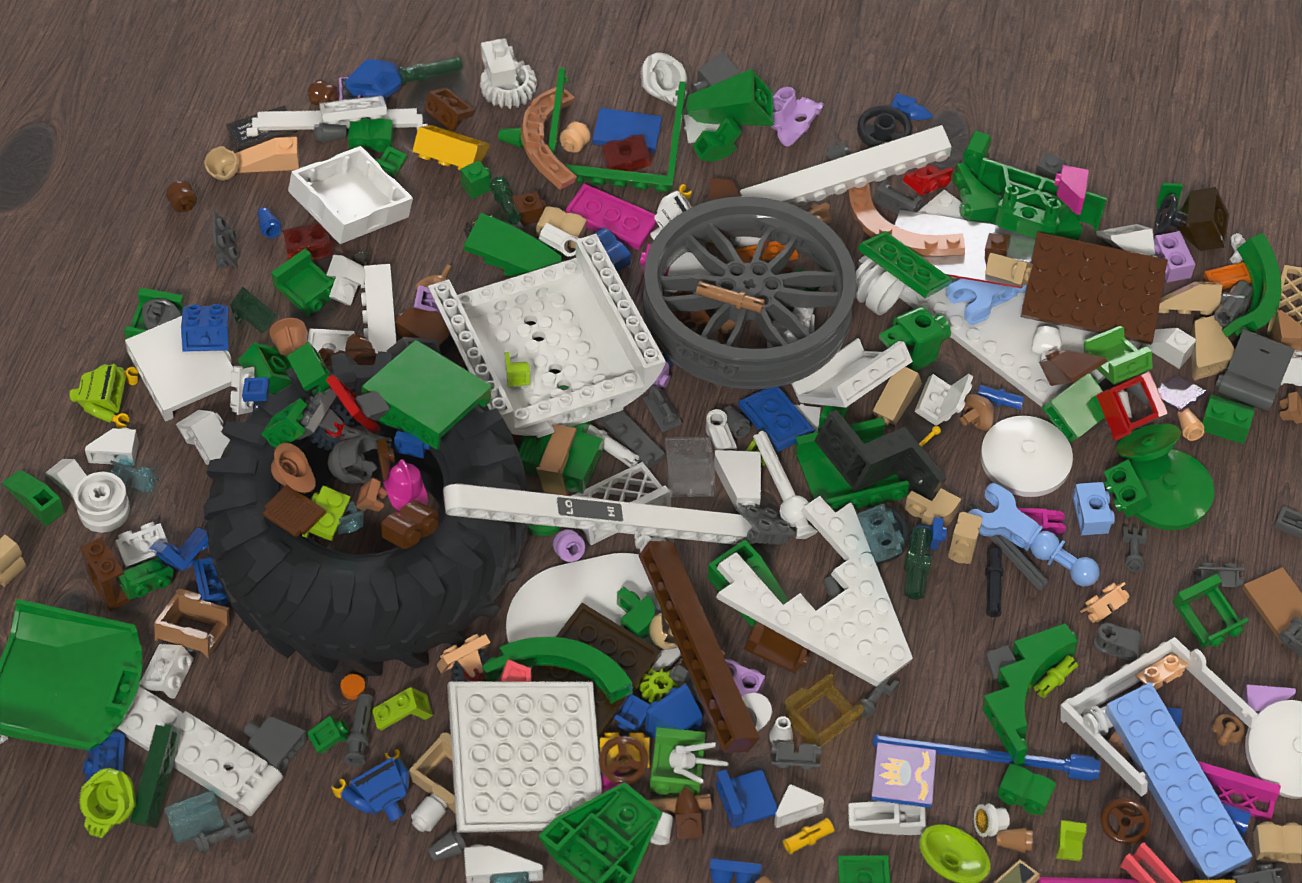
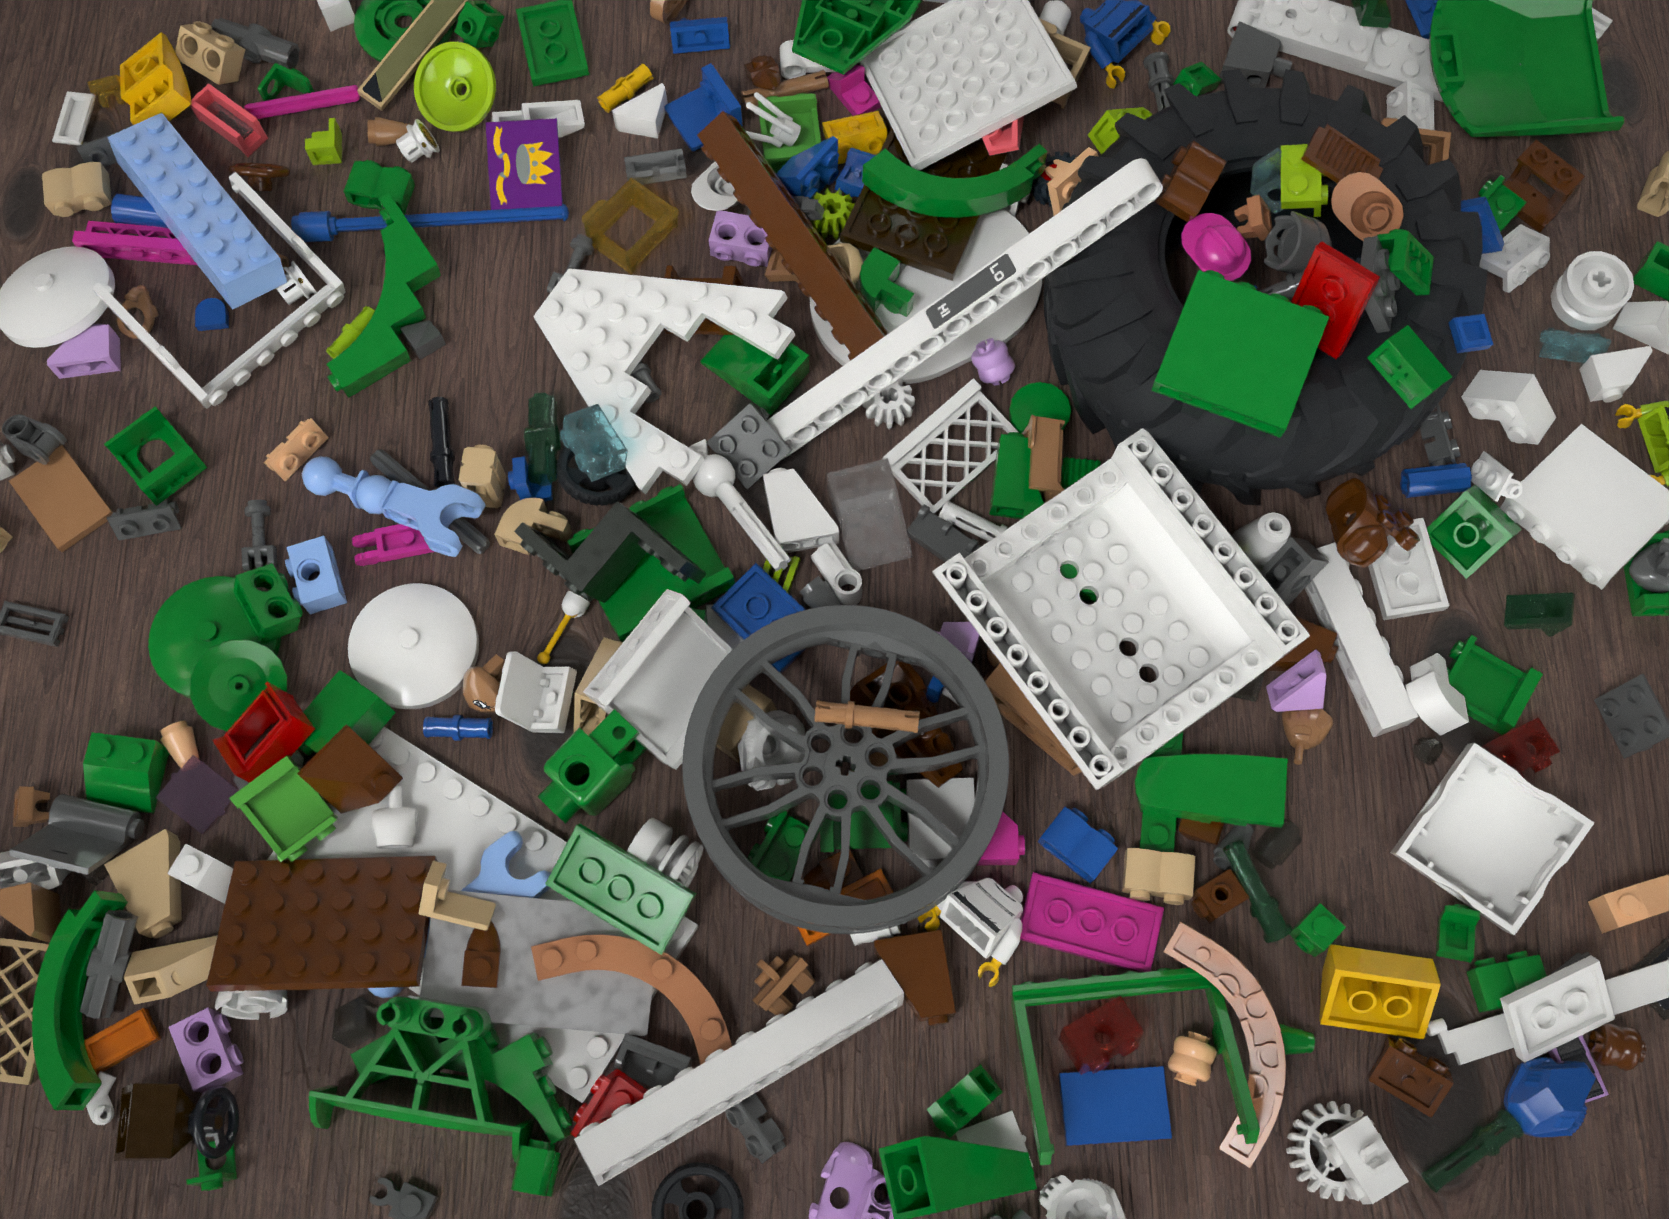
camera: 170 degrees right, 15 degrees up
(205, 328) = (1592, 542): blue bracket -> none
(268, 223) = (1587, 778): blue cone -> none
(288, 335) = (1464, 569): nougat piece -> none
(372, 405) = (1304, 285): dark grey slope -> none
(385, 458) = (1258, 267): reddish brown plate -> none
(517, 372) = (1139, 556): lime panel -> none
(557, 239) = (1138, 827): white piece -> none
(629, 766) = (851, 104): reddish brown piece -> none
(661, 409) = (926, 598): dark grey hinge -> none
(781, 731) = (676, 190): white cone -> none
(1072, 187) = (362, 1083): dark pink slope -> none
(1119, 641) = (275, 394): dark grey piece -> none
(1130, 238) = (279, 1067): white slope -> none
(1163, 670) = (218, 361): light nougat hinge -> none

